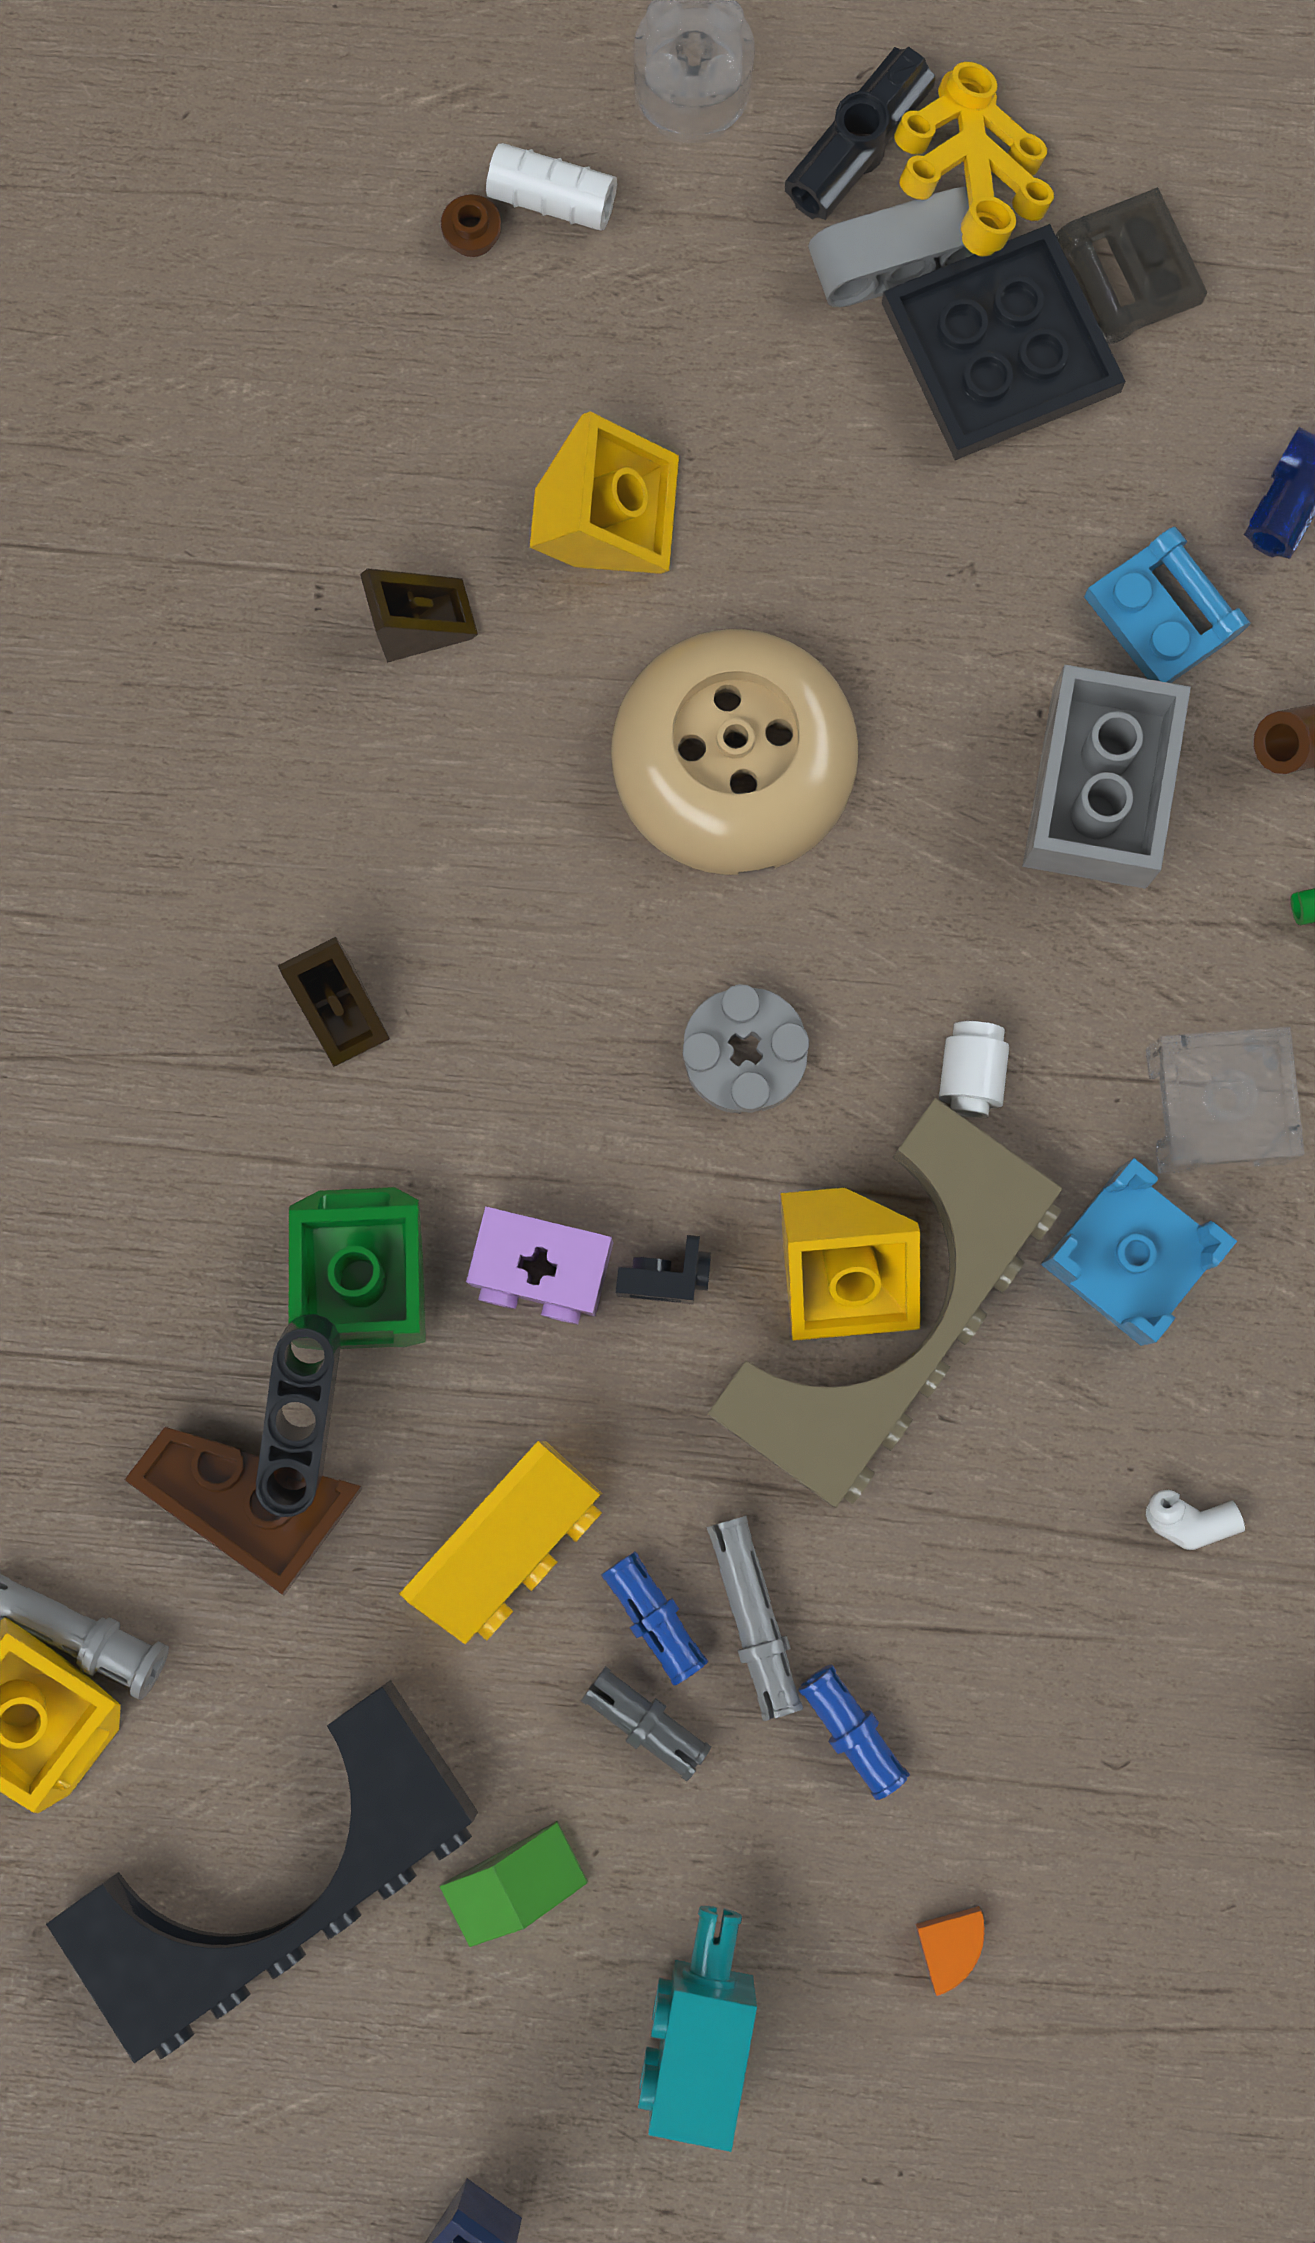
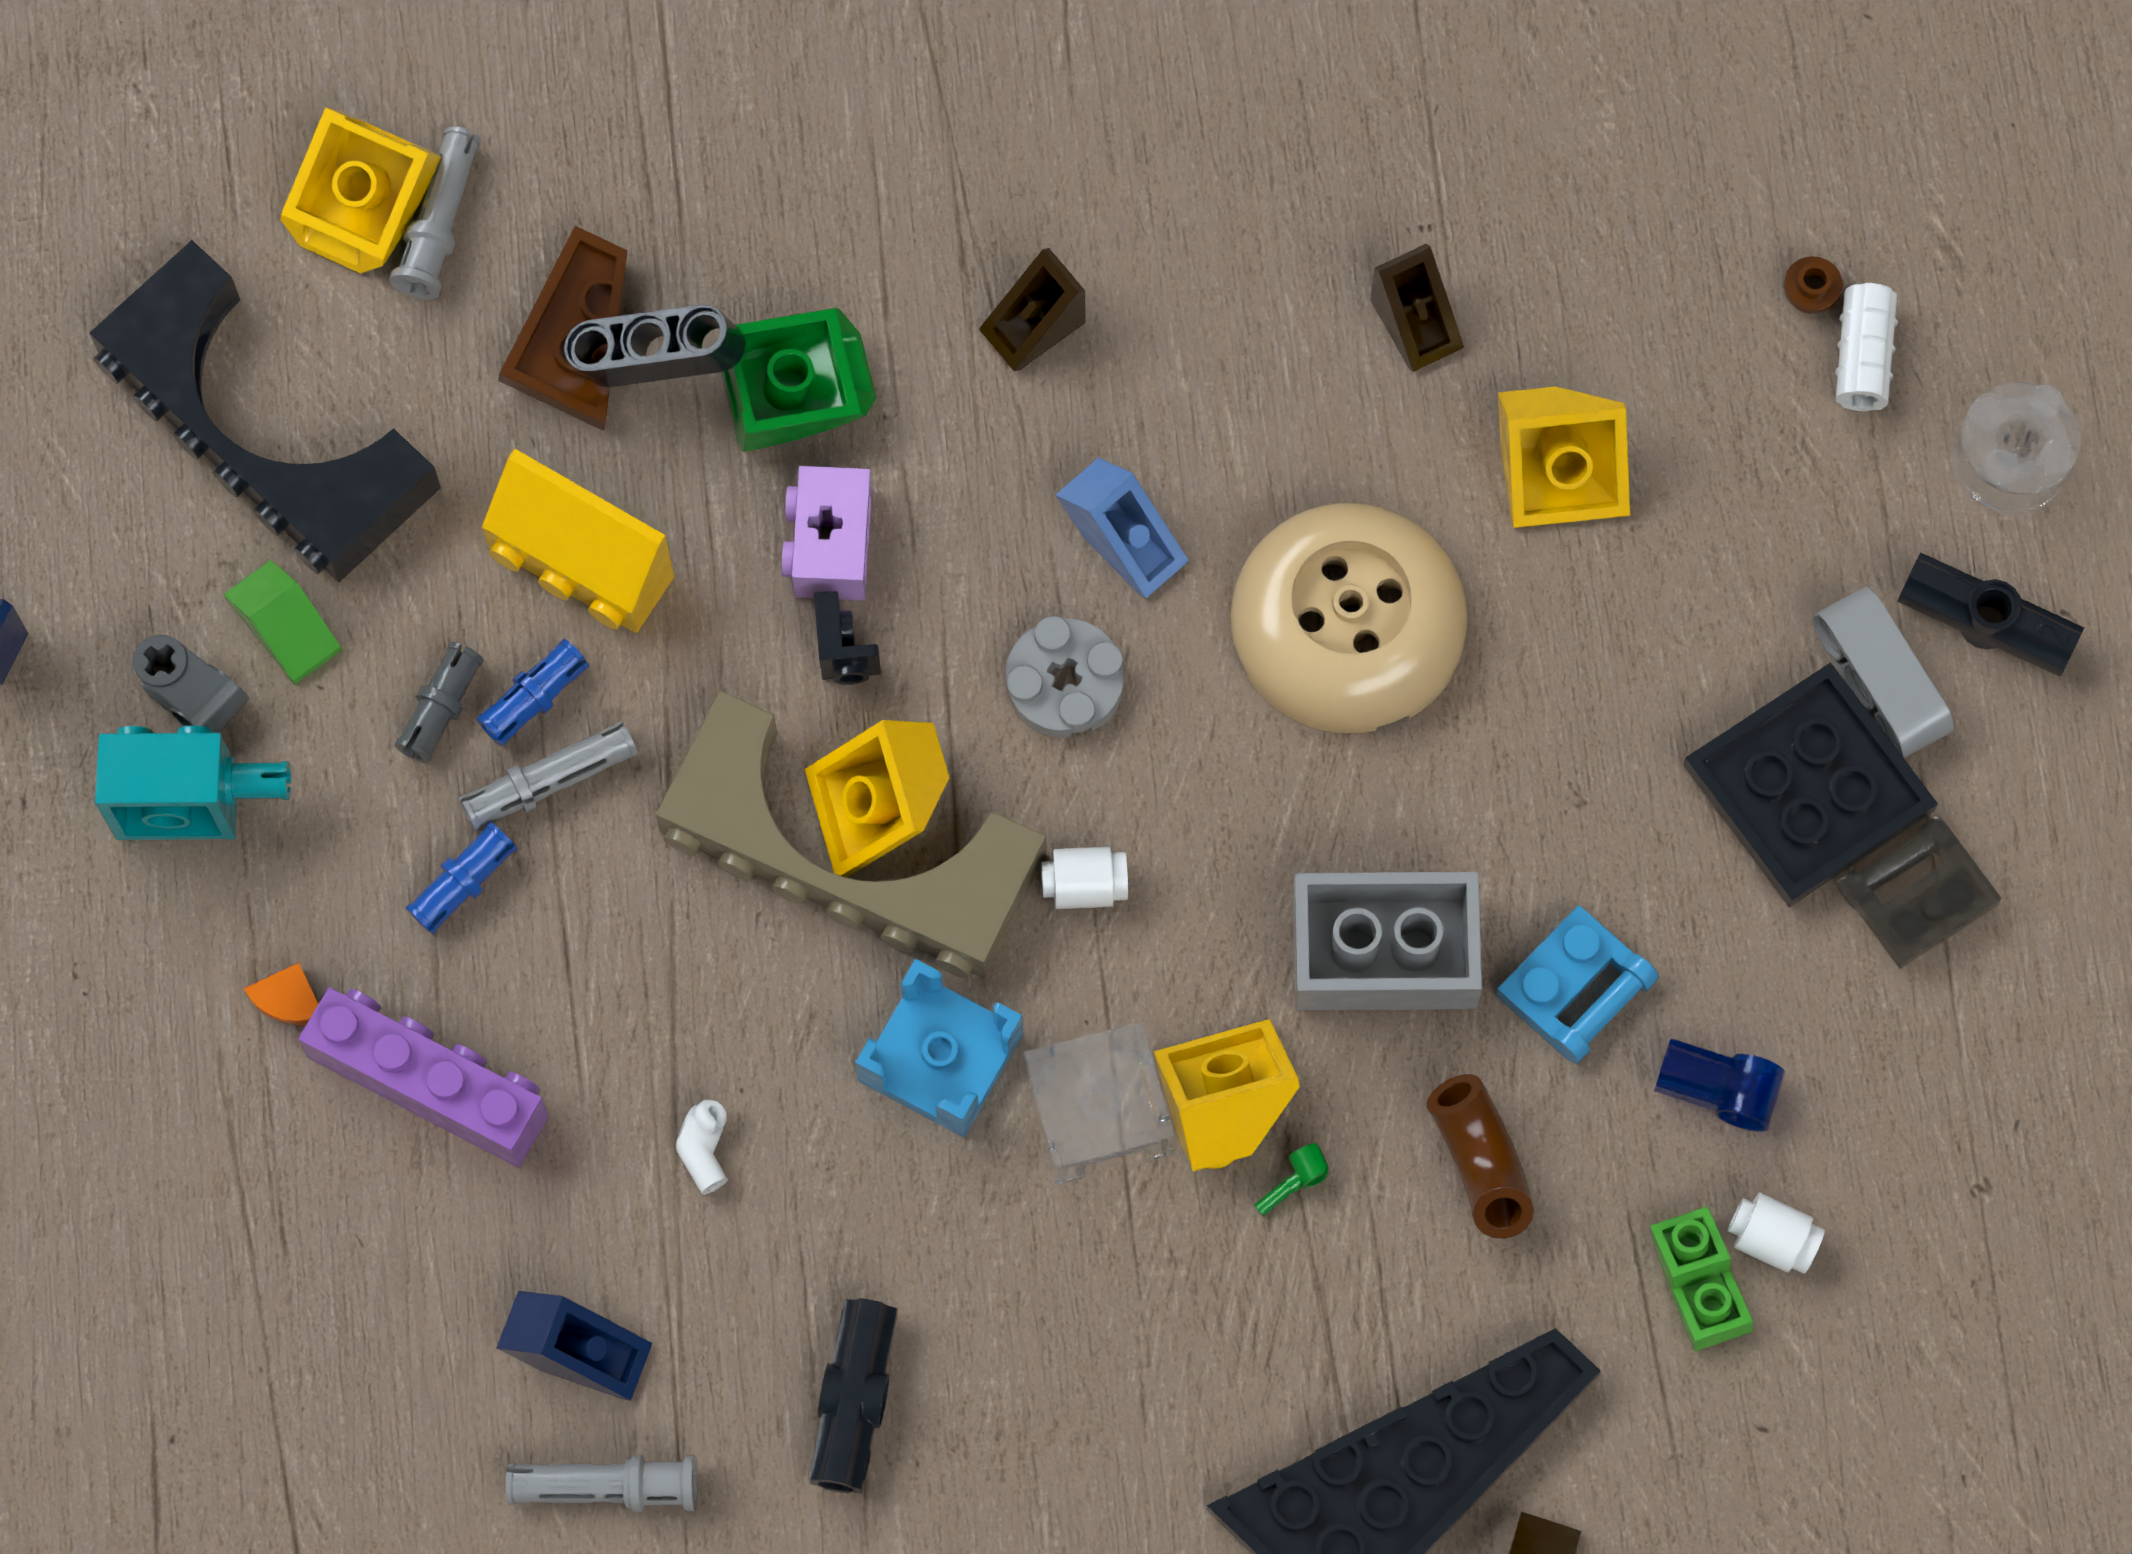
camera: 75 degrees right, 10 degrees down
(588, 1998) = (193, 691): none -> dark grey piece
(592, 957) = (1122, 525): none -> medium blue slope
(971, 97) = (1993, 719): yellow plant -> none
(1076, 1811) = (424, 1076): none -> medium lavender brick
(1229, 966) = (1226, 1091): none -> yellow slope

